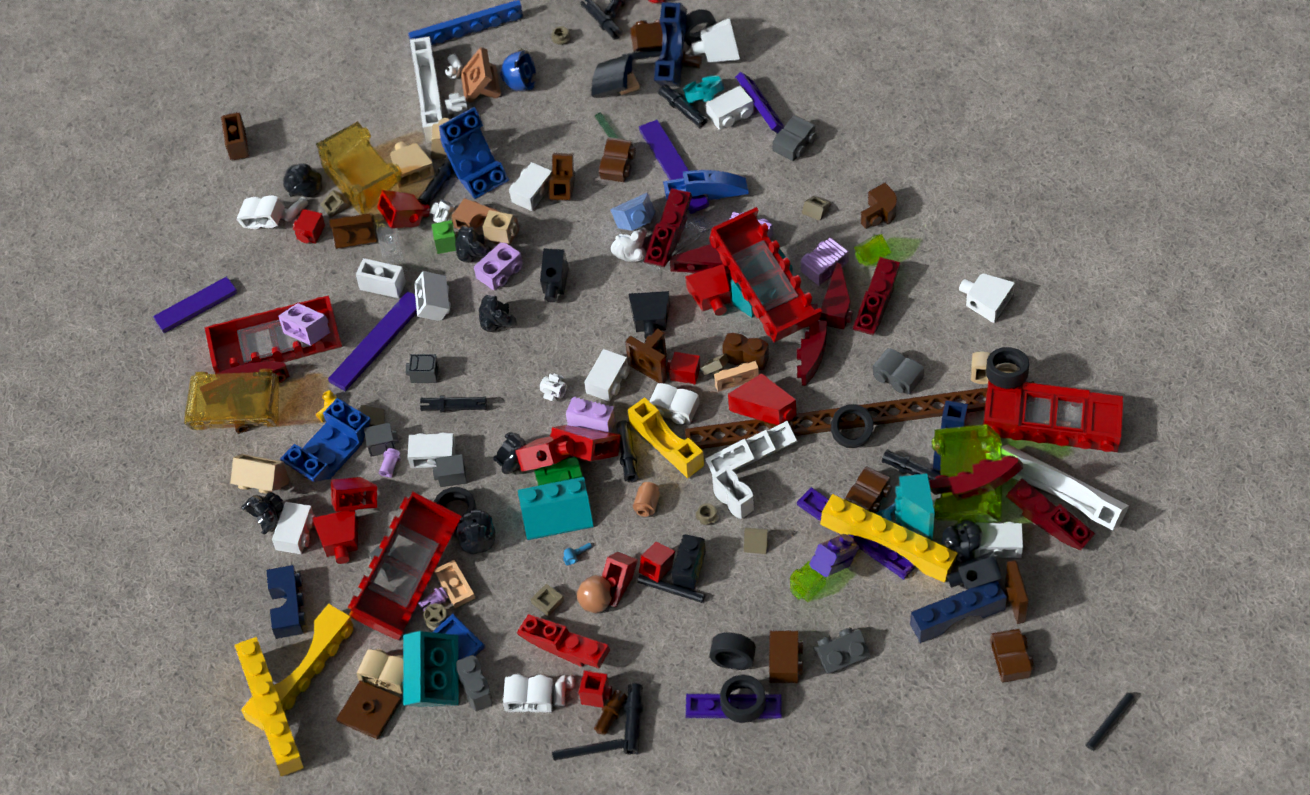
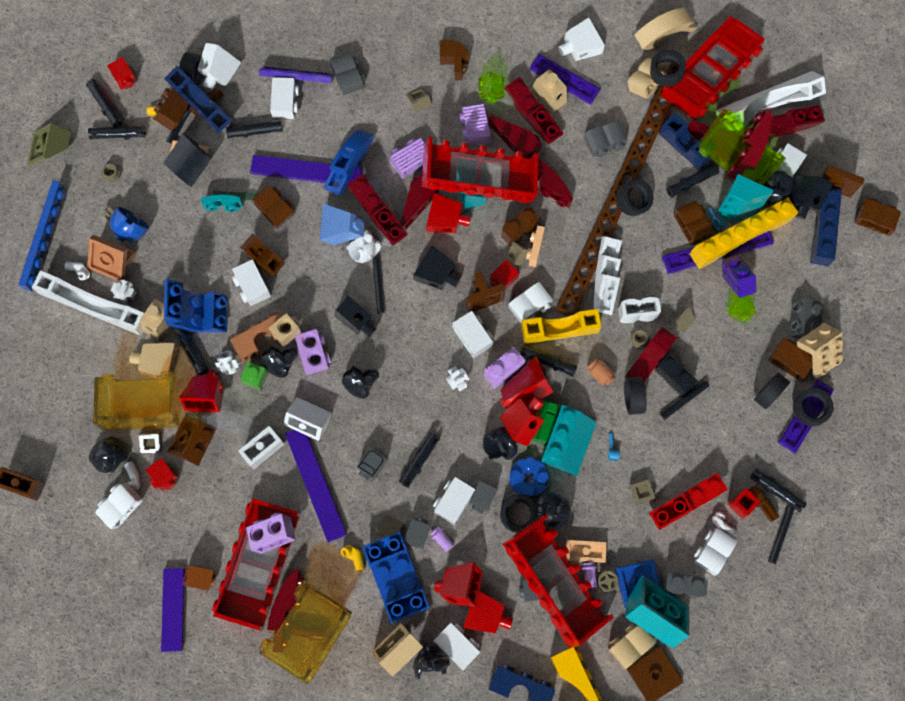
camera: 65 degrees left, 20 degrees up
(233, 302) = (198, 578): none -> dark orange brick
(493, 488) = (528, 466): none -> blue plate
(594, 125) = (229, 202): none -> teal slope
(594, 594) = (661, 456): nougat hair -> none
(602, 281) = (378, 286): none -> black bar
(619, 572) = (656, 432): red slope -> none
(638, 534) = (635, 395): none -> black tyre
(656, 561) = (662, 396): red brick -> none
(703, 90) = (250, 112): teal plate -> none
(710, 527) = (652, 354): none -> dark red slope
(762, 401) = (574, 241): red slope -> none
(811, 675) = (825, 347): none -> tan bracket
(910, 289) = (549, 88): none -> tan torso
(937, 307) = (574, 83): none -> dark purple tile
(1065, 349) = (664, 26): none -> tan arch

